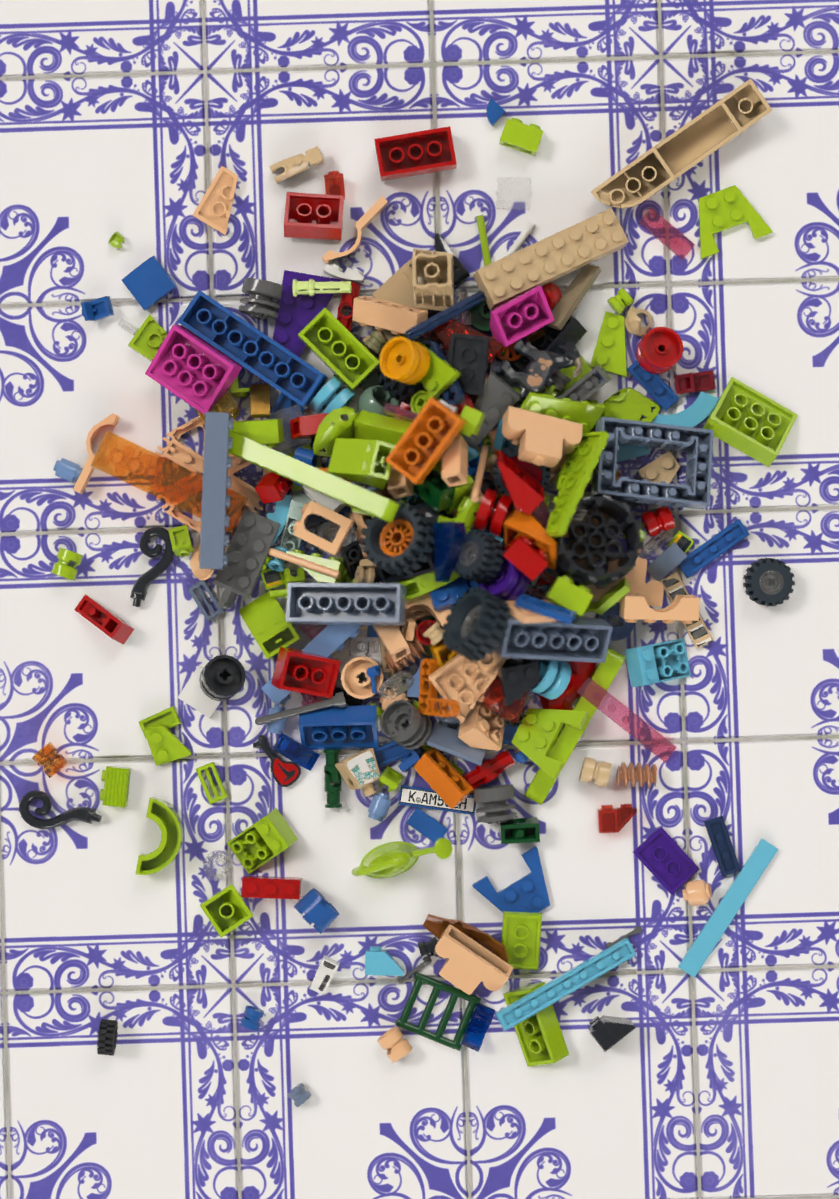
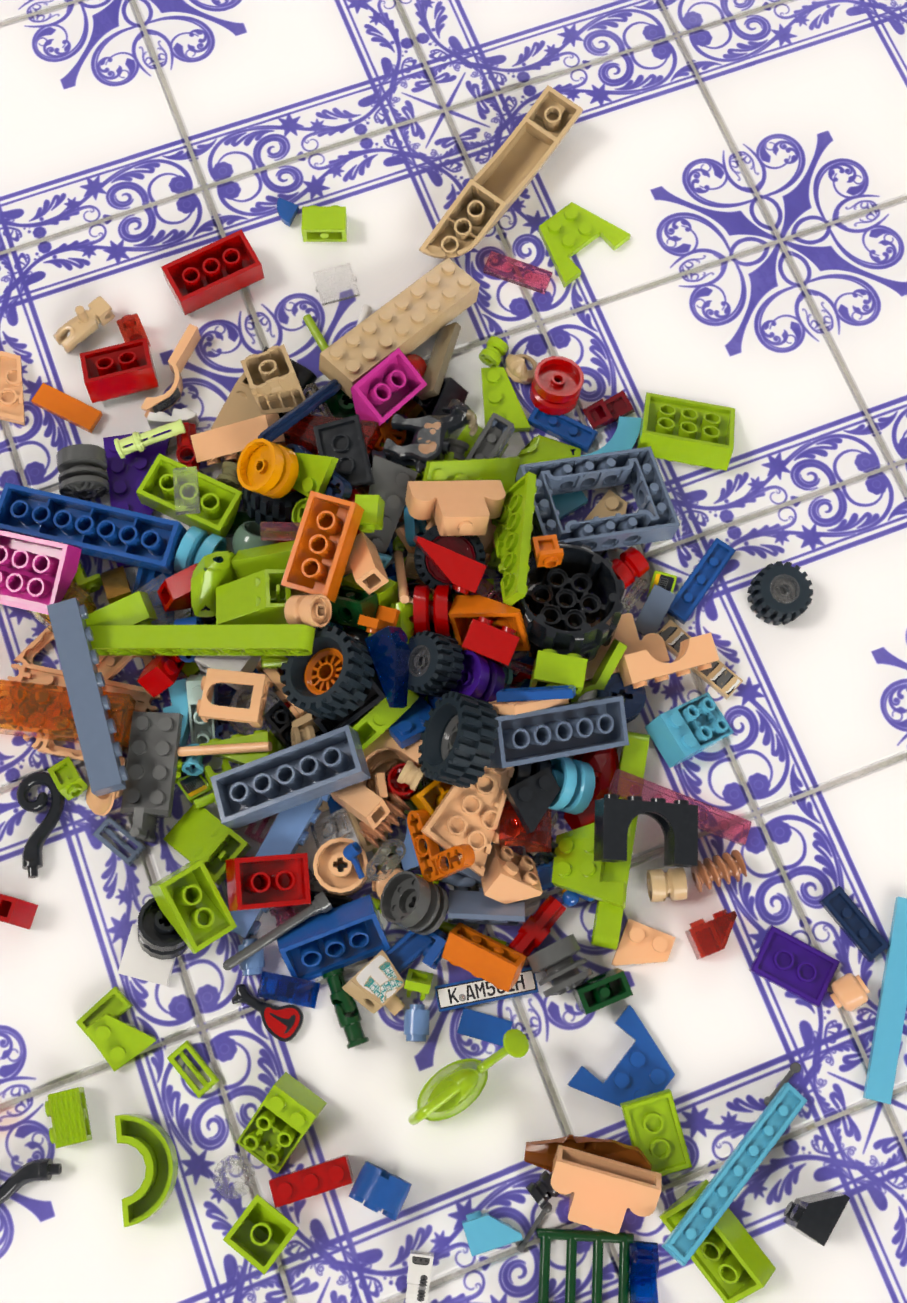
camera: 25 degrees left, 15 degrees down
(247, 671) = (193, 905): none -> lime slope
(262, 232) = (67, 407): none -> orange tile
(337, 347) = (186, 490): none -> clear tile
(399, 488) = (308, 610): none -> light nougat wheel
(452, 511) = (384, 617): none -> orange bracket
(561, 808) = (642, 945): none -> light nougat wing
(573, 713) = (676, 820): none -> black arch
(593, 502) = (547, 551): none -> orange bracket

